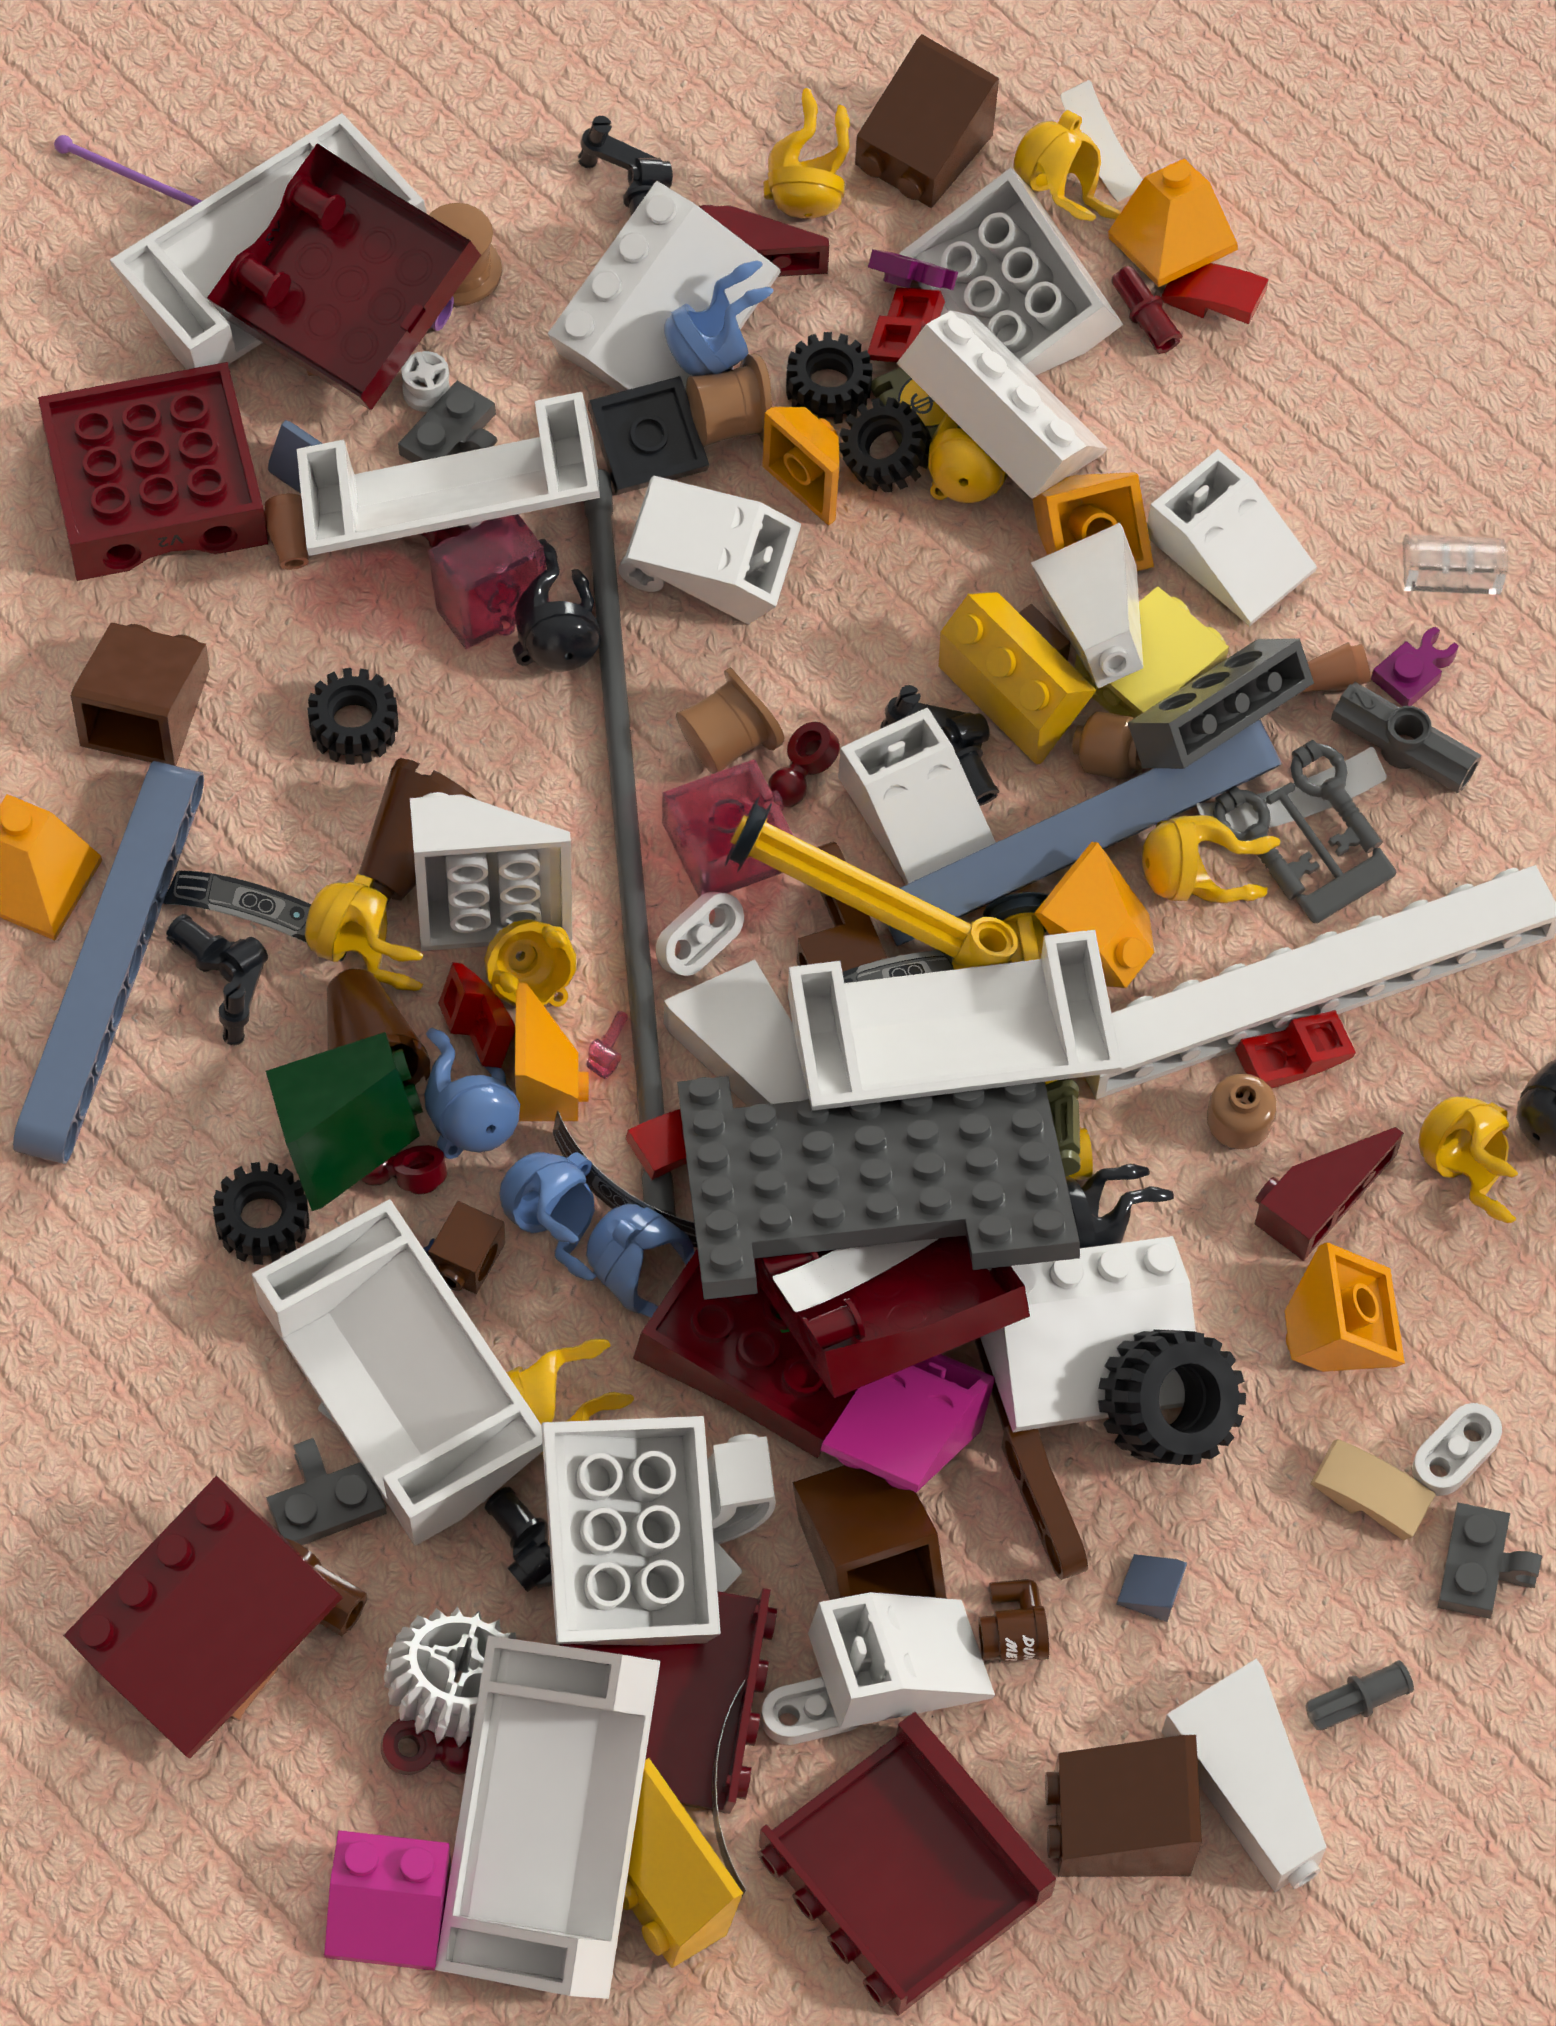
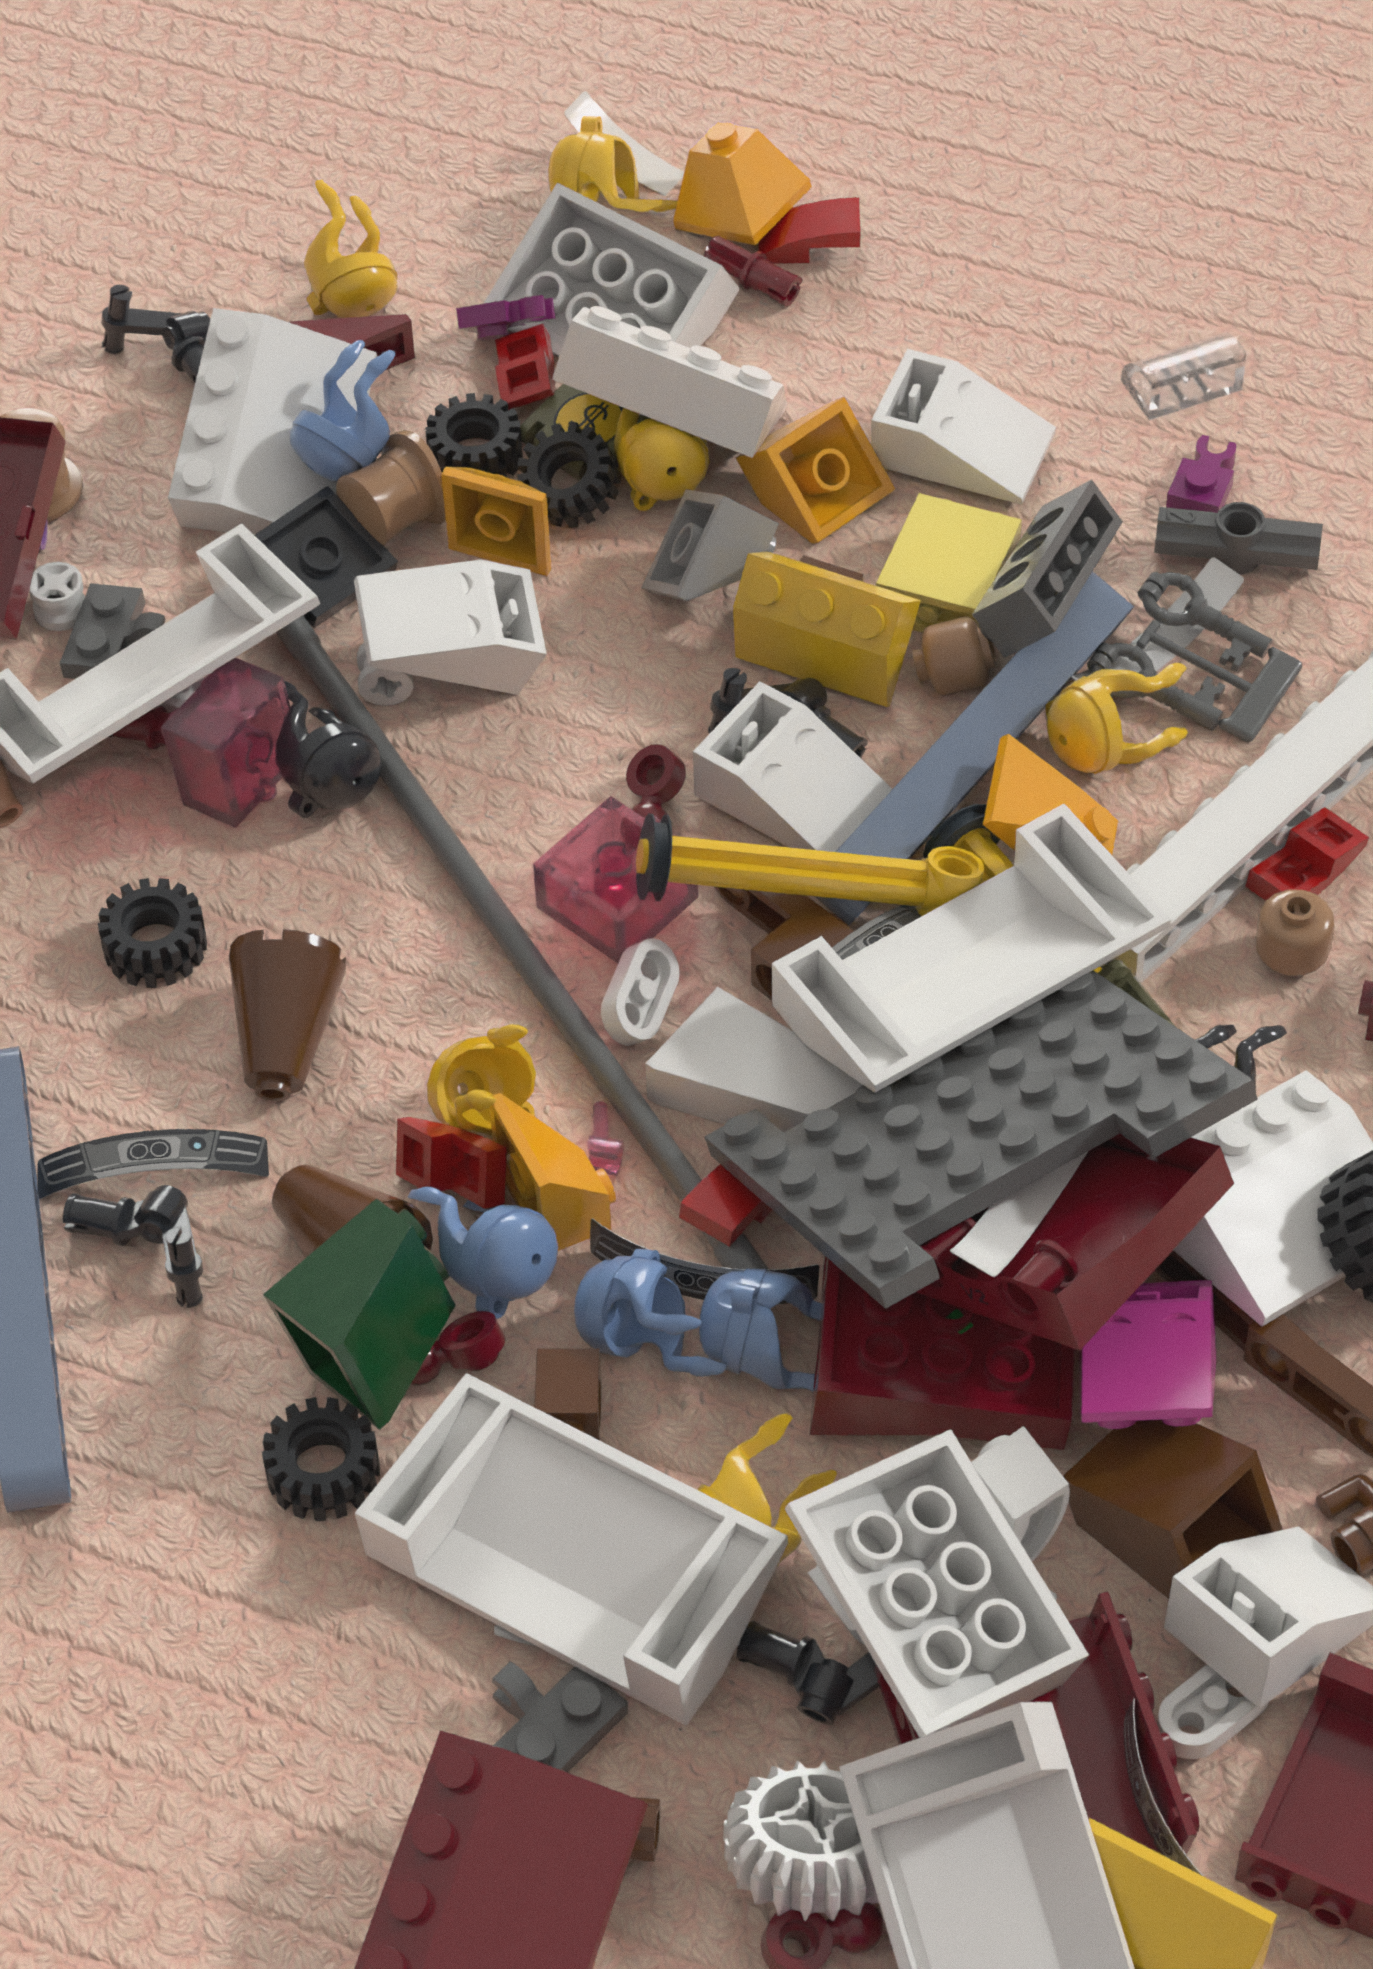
camera: 20 degrees left, 10 degrees down
(355, 919) = (270, 1121): yellow hair -> none
(485, 870) = (390, 997): white slope -> none
(728, 724) = (560, 780): medium nougat piece -> none
(928, 122) = (446, 181): reddish brown slope -> none
(957, 561) = (707, 546): none -> light grey slope
(1096, 602) = (869, 527): white slope -> none
(1339, 668) = (1139, 502): nougat cone -> none

